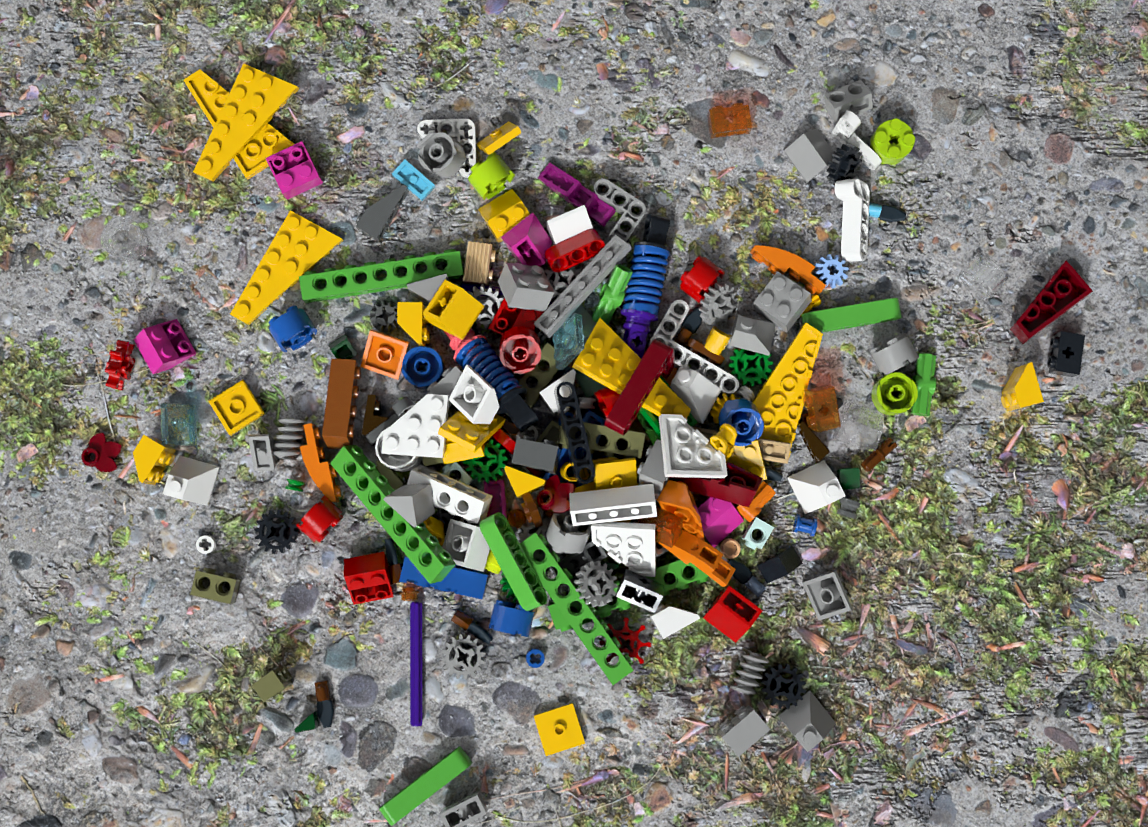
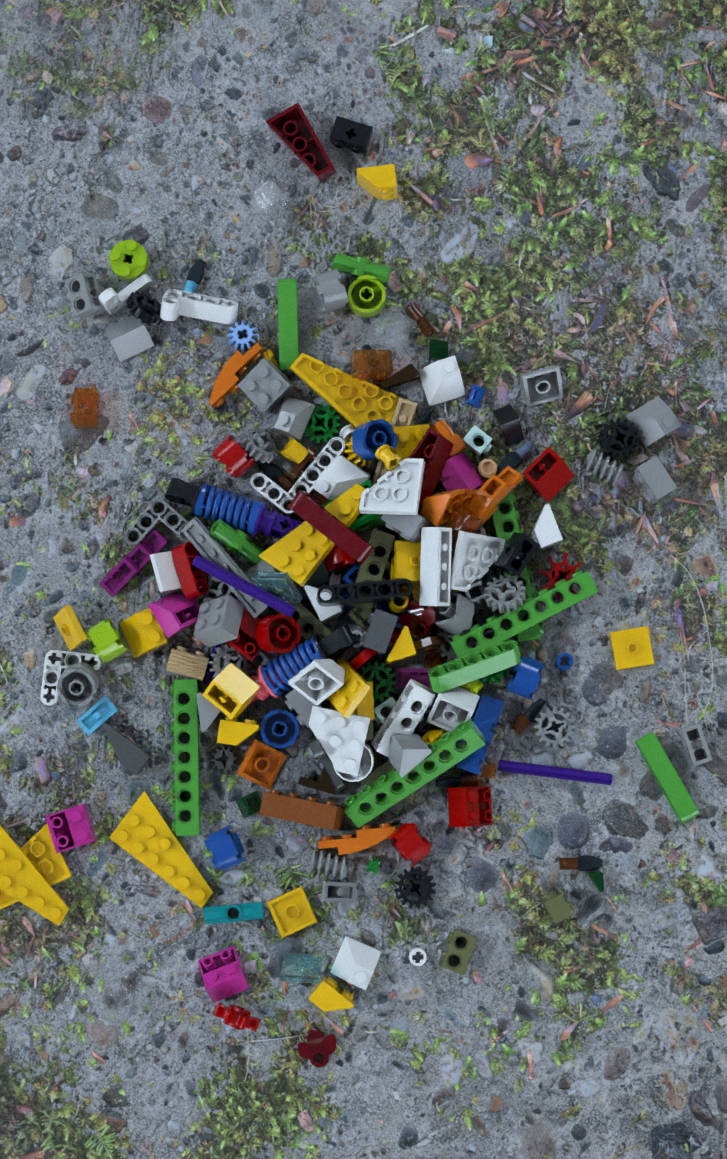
camera: 80 degrees left, 0 degrees up
(230, 360) = (220, 914): none -> teal piece
(564, 306) = (244, 586): none -> dark purple axle

